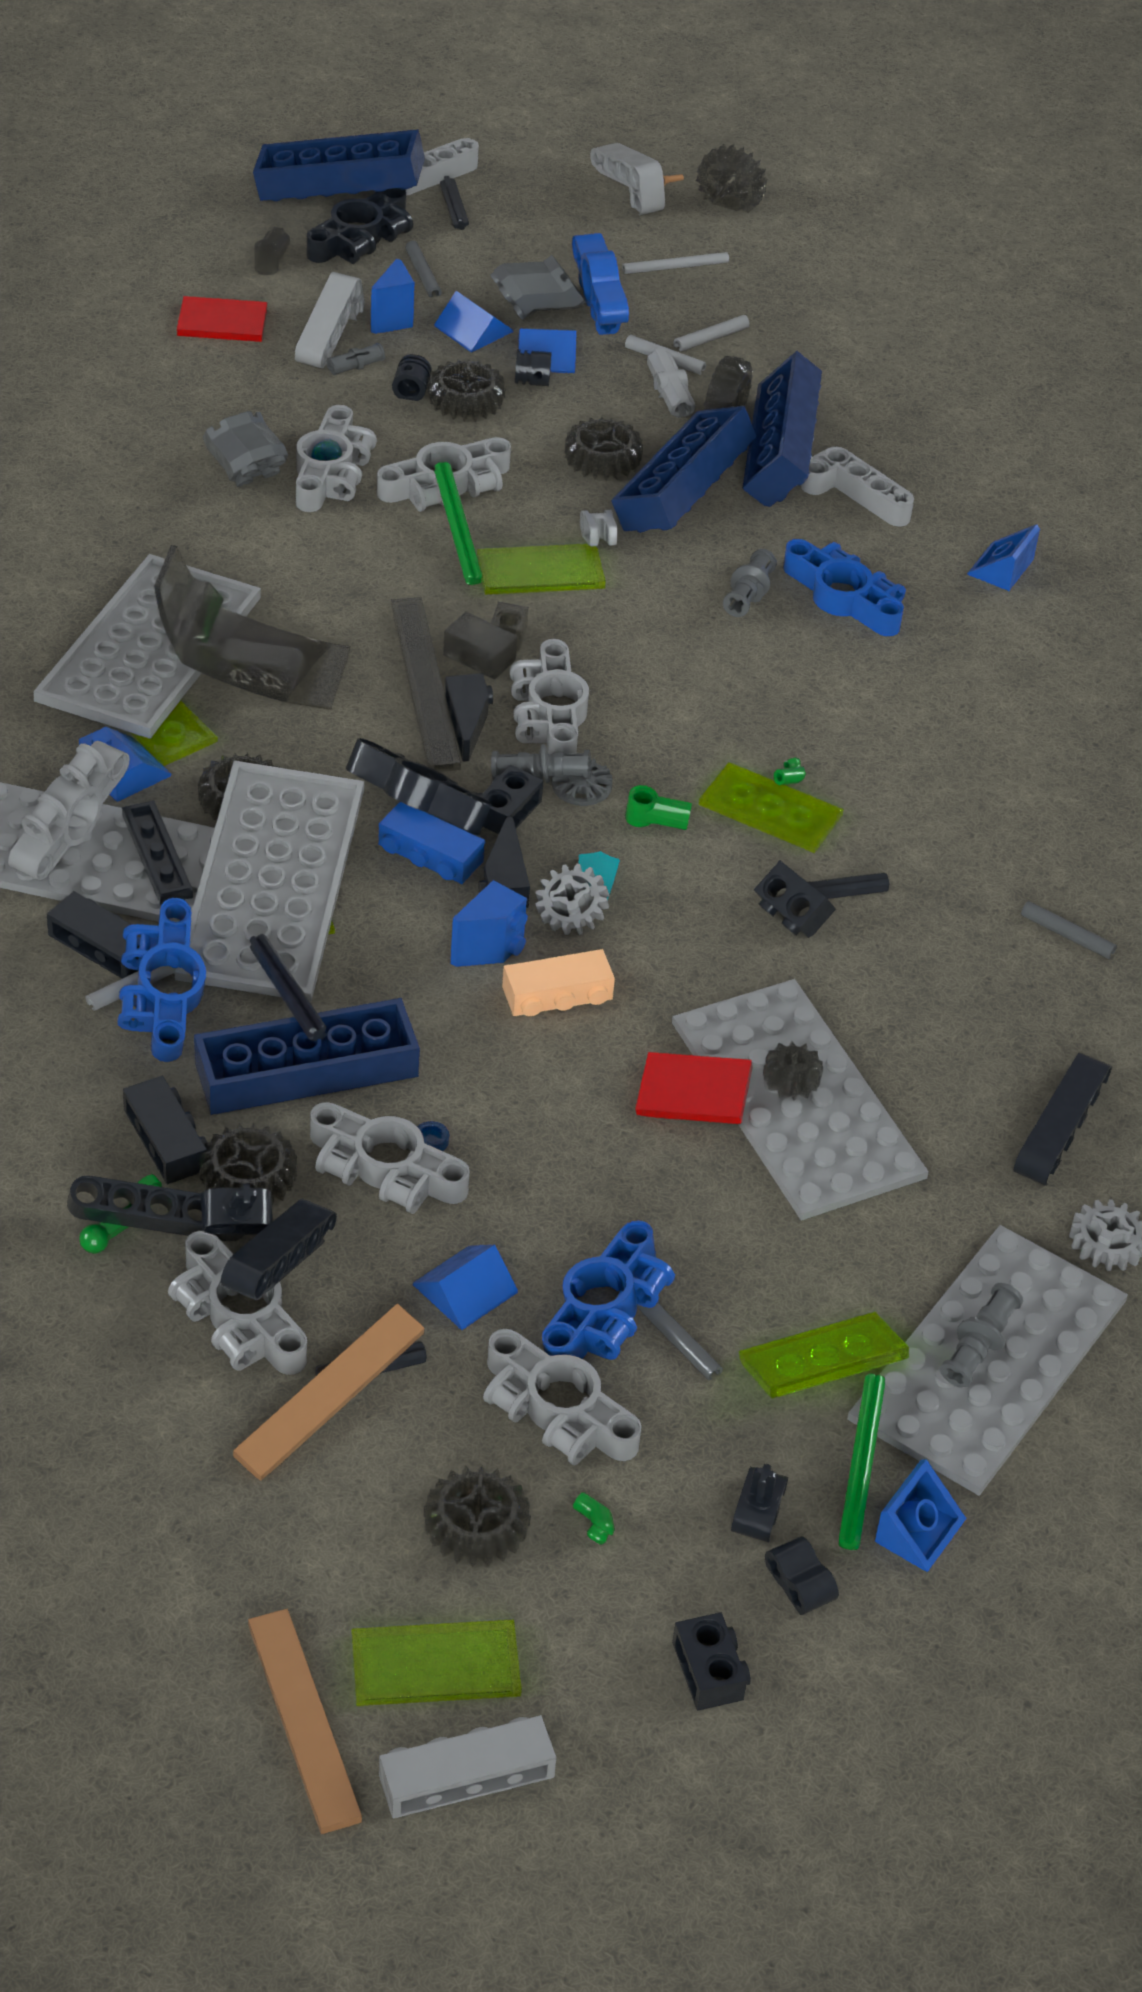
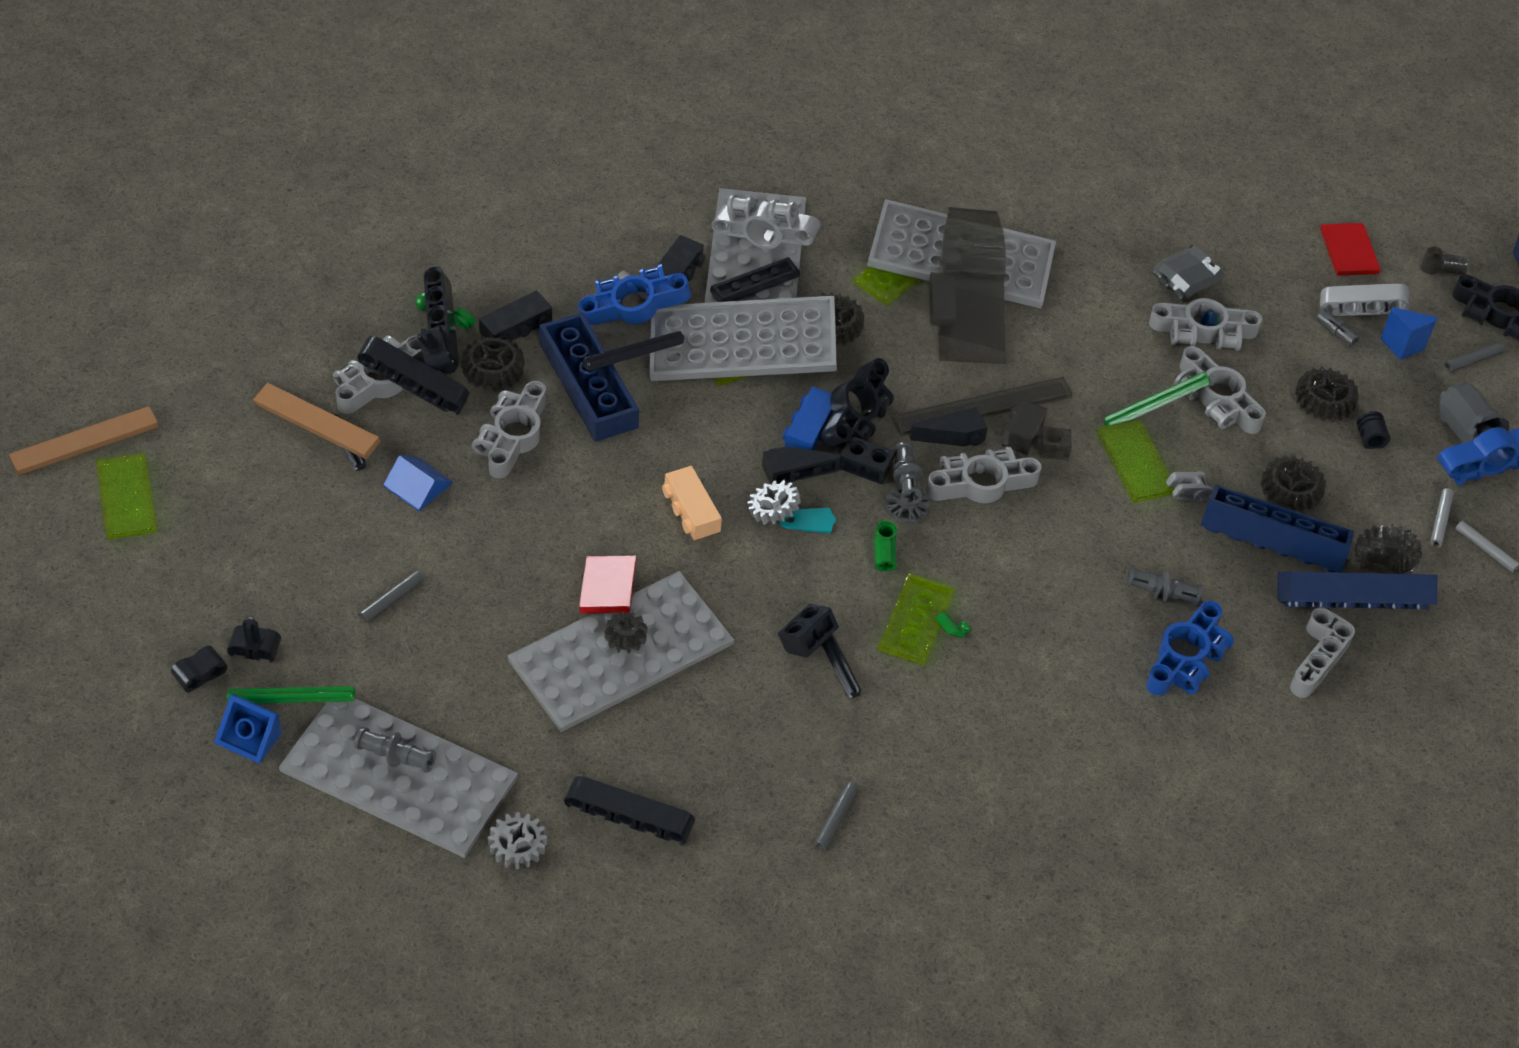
camera: 80 degrees right, 5 degrees up
(143, 767) = (840, 255): blue slope -> none
(412, 375) = (1324, 356): black piece -> none
(435, 1134) = (541, 453): clear blue tile -> none
(452, 1513) = (215, 498): clear smoke gear -> none
(466, 1766) = (49, 512): light grey brick -> none
(470, 324) = (1418, 392): slope -> none
(489, 927) = (726, 453): blue slope -> none
(559, 342) = (1407, 440): blue slope -> none
(575, 1430) = (308, 554): light grey piece -> none
(599, 1516) = (238, 564): green arm -> none
(603, 1328) = (382, 541): blue piece -> none
(671, 383) = (1406, 517): light grey piece -> none
(704, 1662) = (128, 623): black brick -> none
(823, 1354) = (380, 671): clear neon green tile -> none
(1007, 558) = (1268, 763): blue slope -> none

